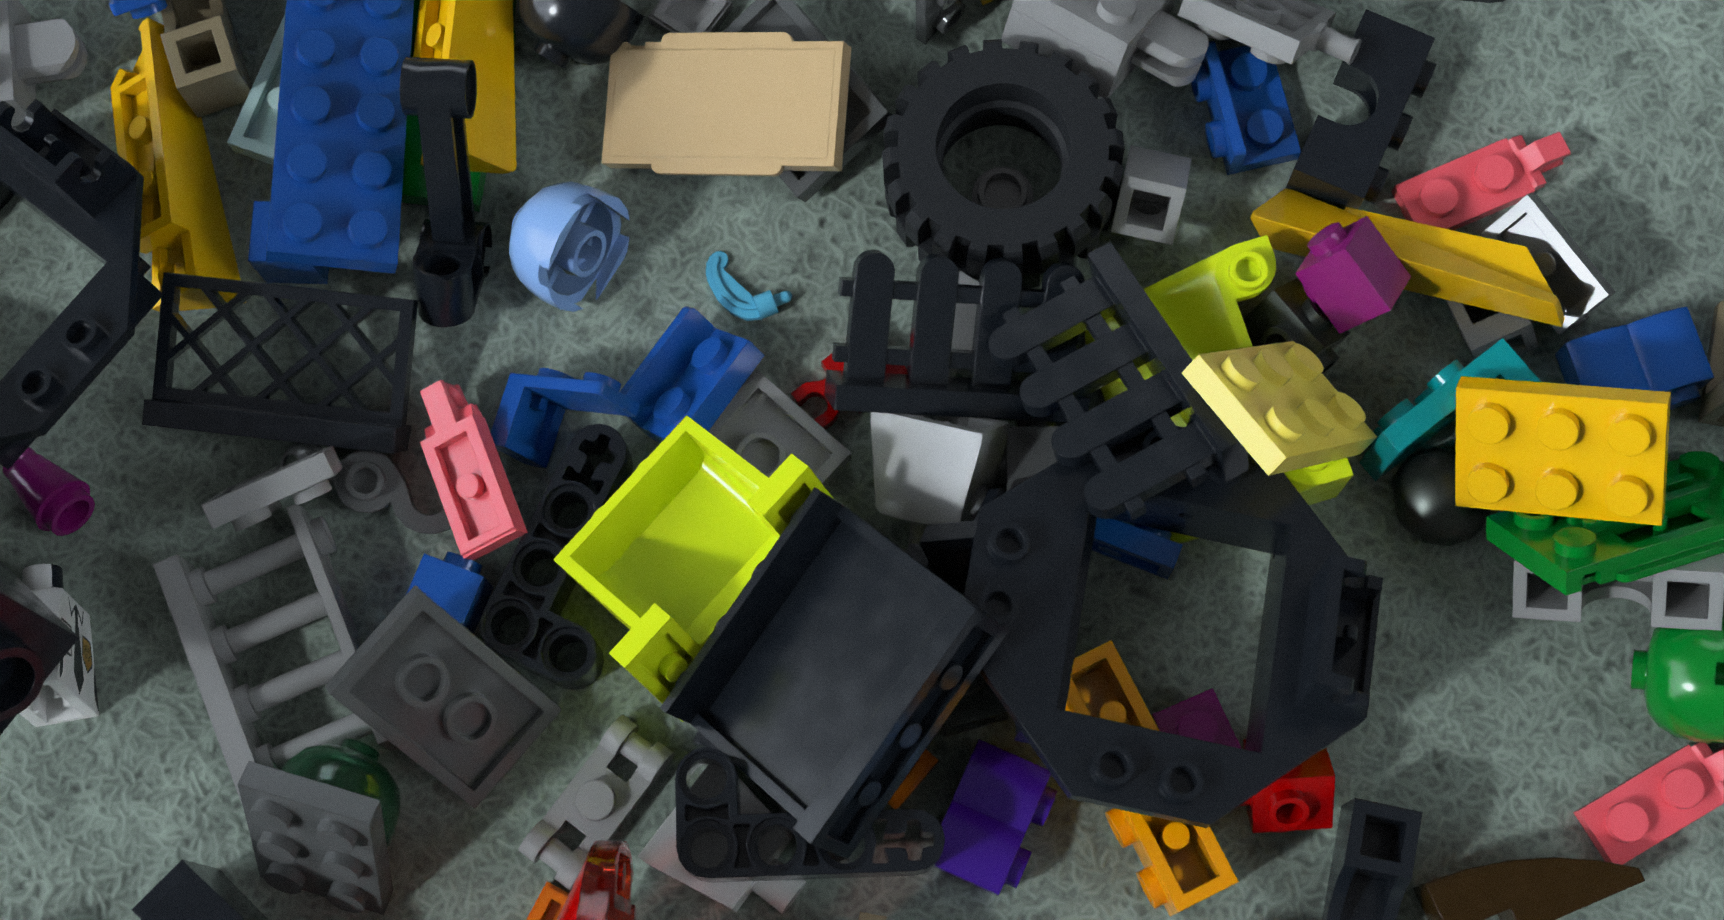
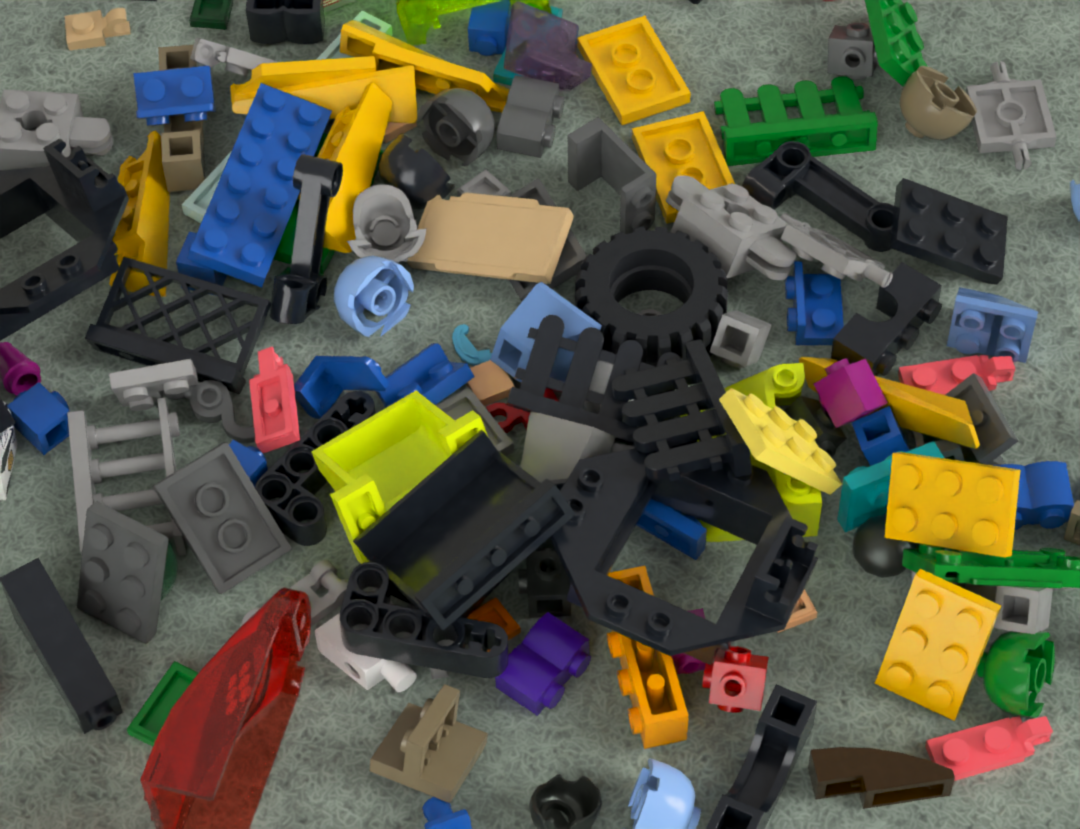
camera: 10 degrees right, 20 degrees down
(111, 569) = (41, 417): none -> blue brick
(559, 122) = (385, 225): none -> light grey helmet
(787, 346) = (490, 382): none -> light nougat tile
(835, 239) = (513, 346): none -> medium blue slope
(1412, 335) = (880, 435): none -> blue brick
(1520, 85) = (991, 325): none -> medium blue slope
(1578, 672) = (937, 644): none -> yellow plate

